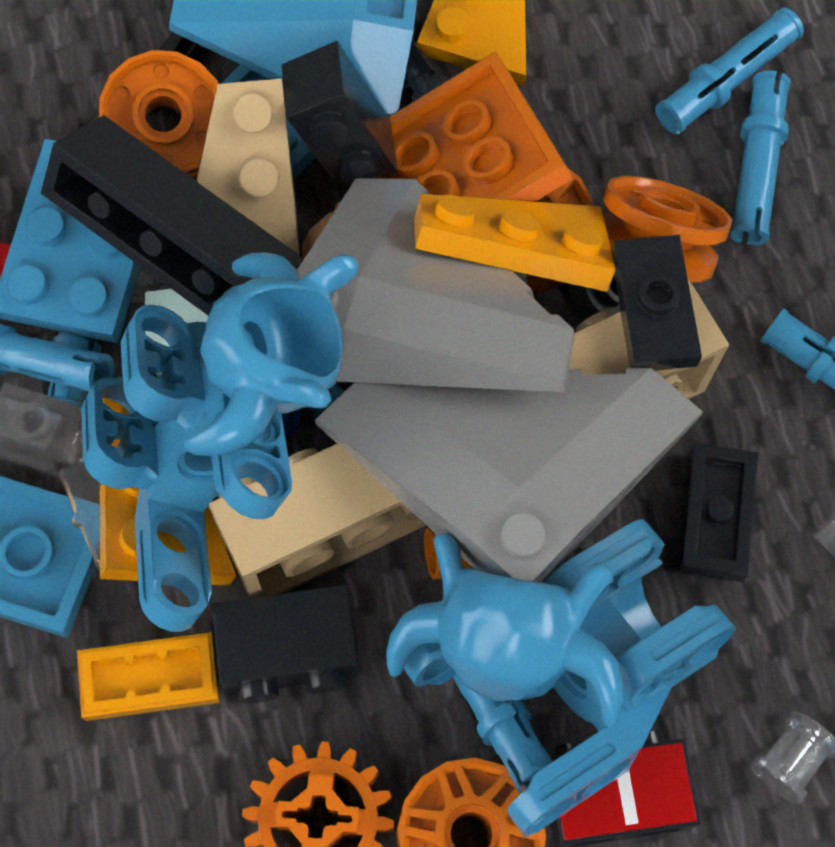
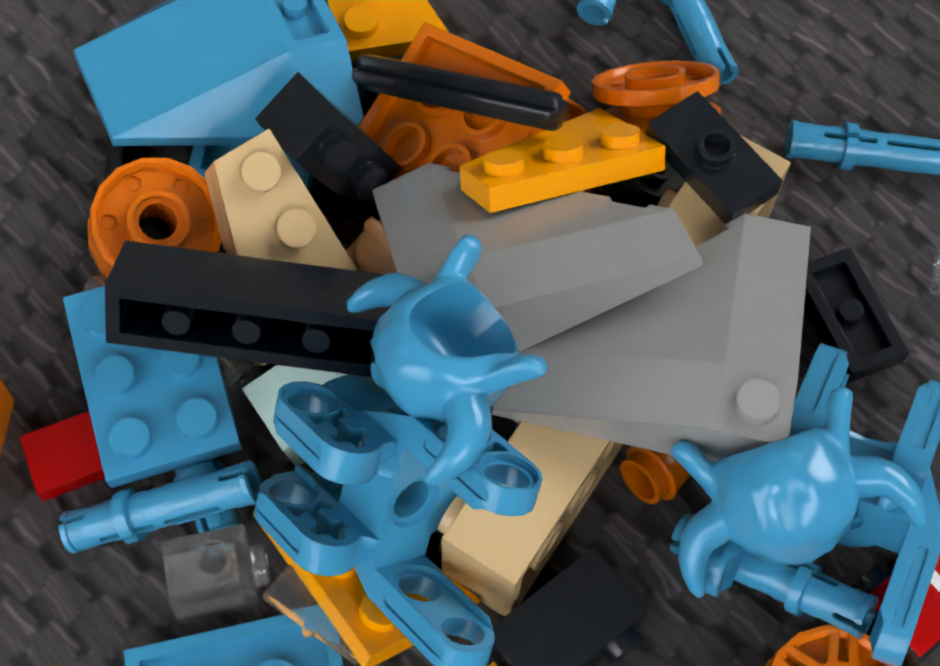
camera: 30 degrees left, 5 degrees down
(479, 130) = (461, 92): none -> black axle

